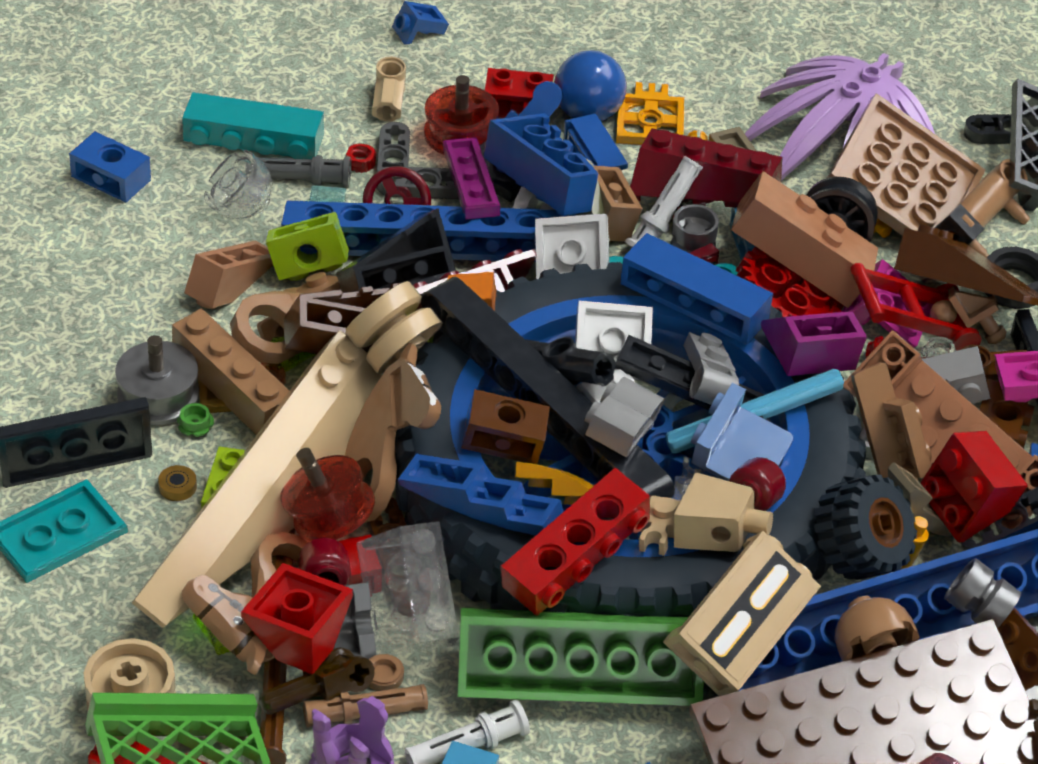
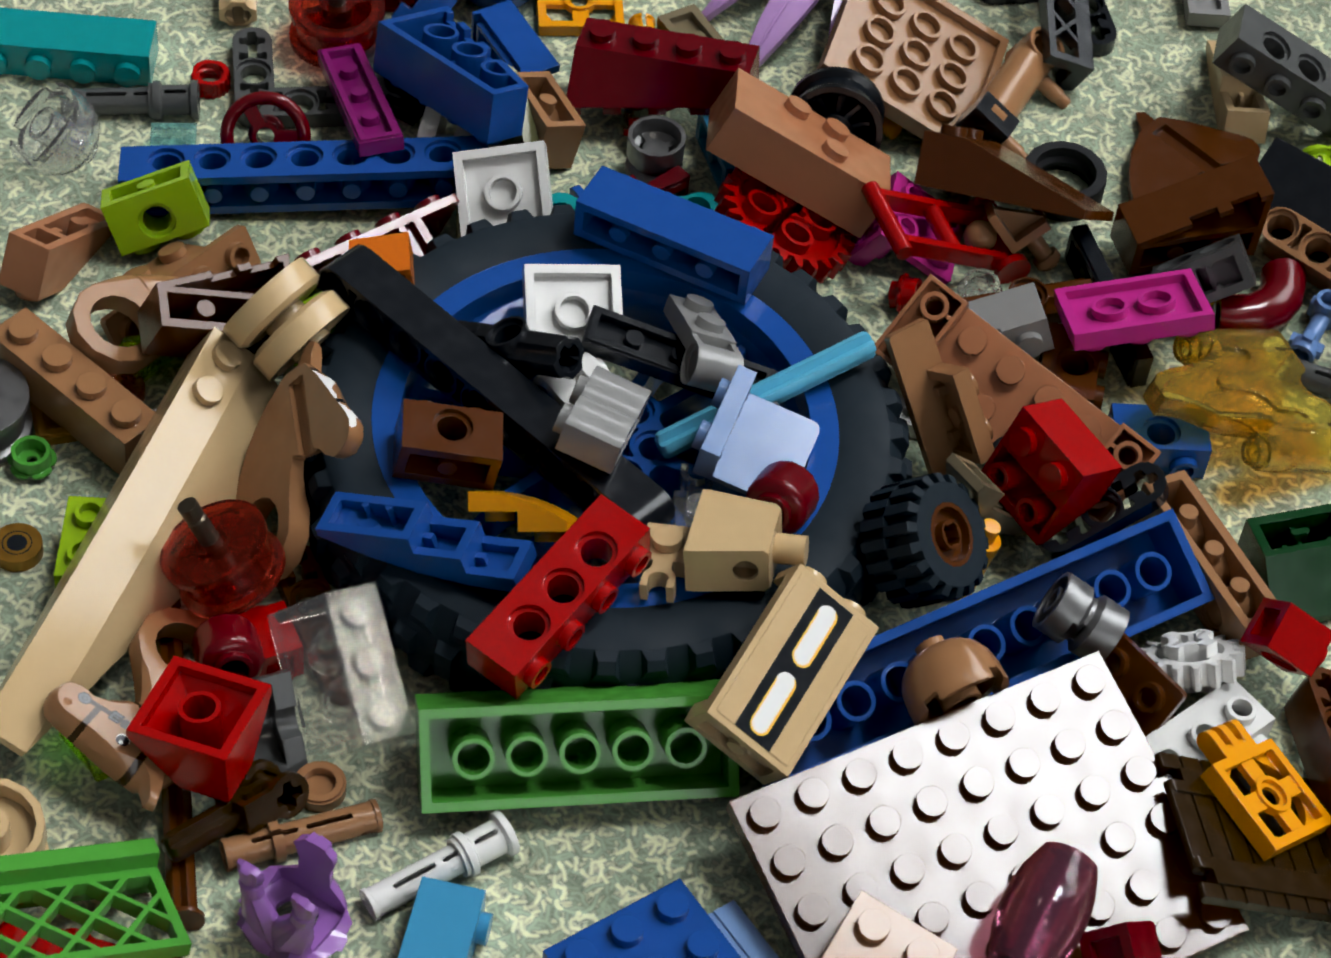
camera: 10 degrees left, 5 degrees up
(411, 254) = (288, 216): black wedge -> none
(657, 219) = (604, 140): white pin -> none
(816, 342) = (834, 296): magenta slope -> none

